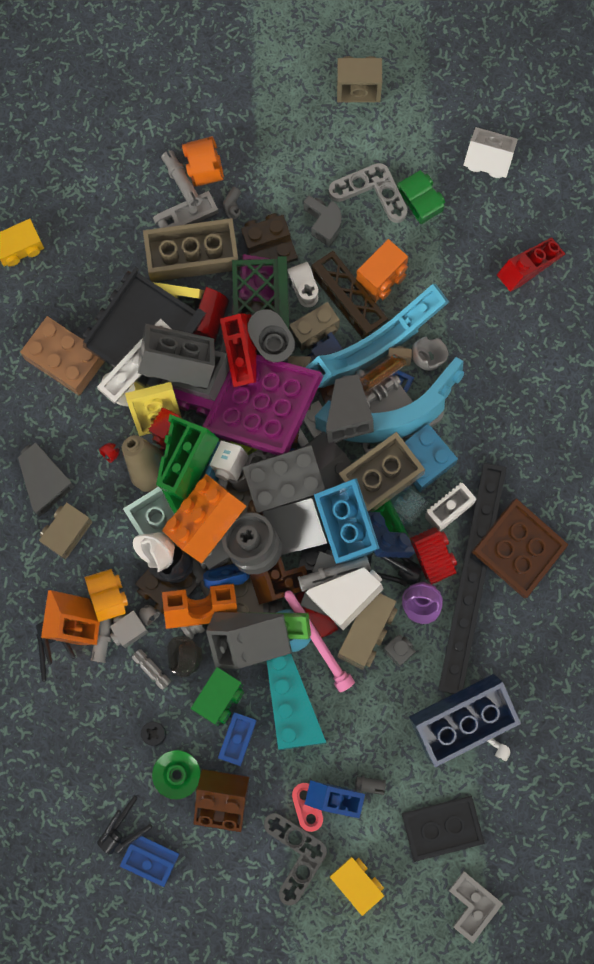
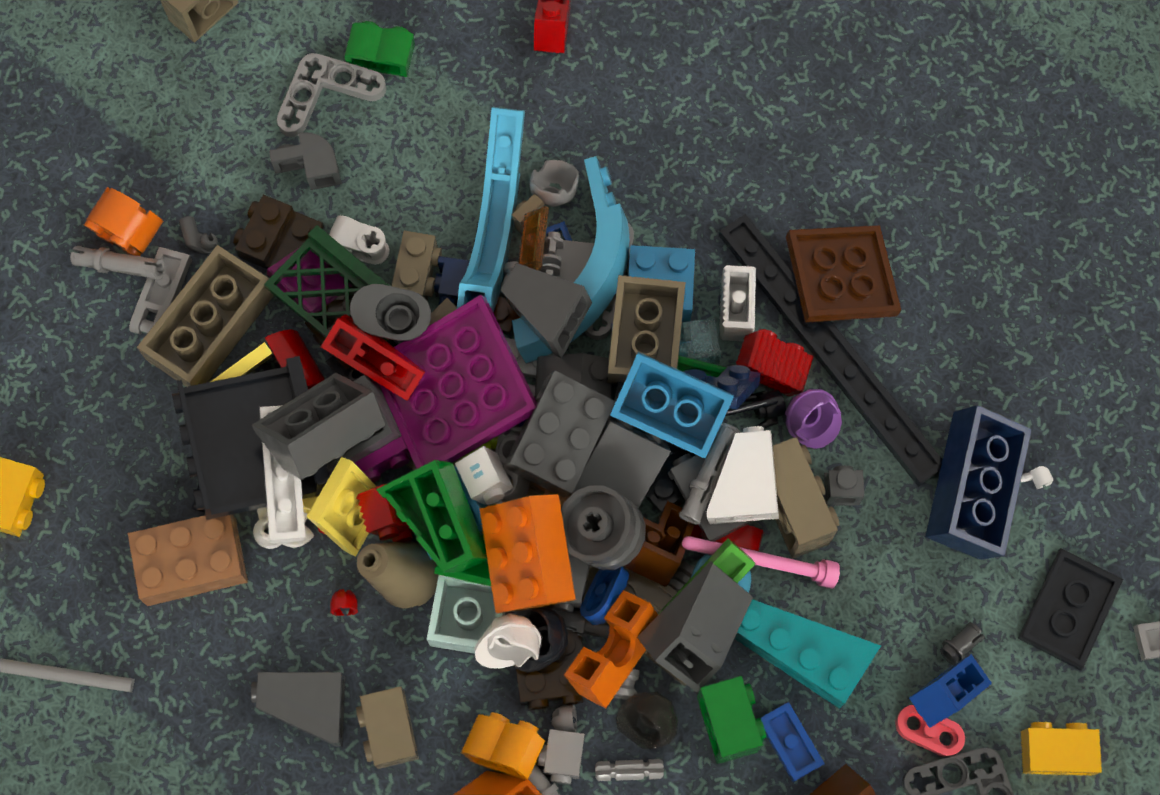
camera: 50 degrees left, 5 degrees down
(342, 301) = (418, 218): dark brown fence -> none
(383, 271) = (425, 150): orange brick -> none

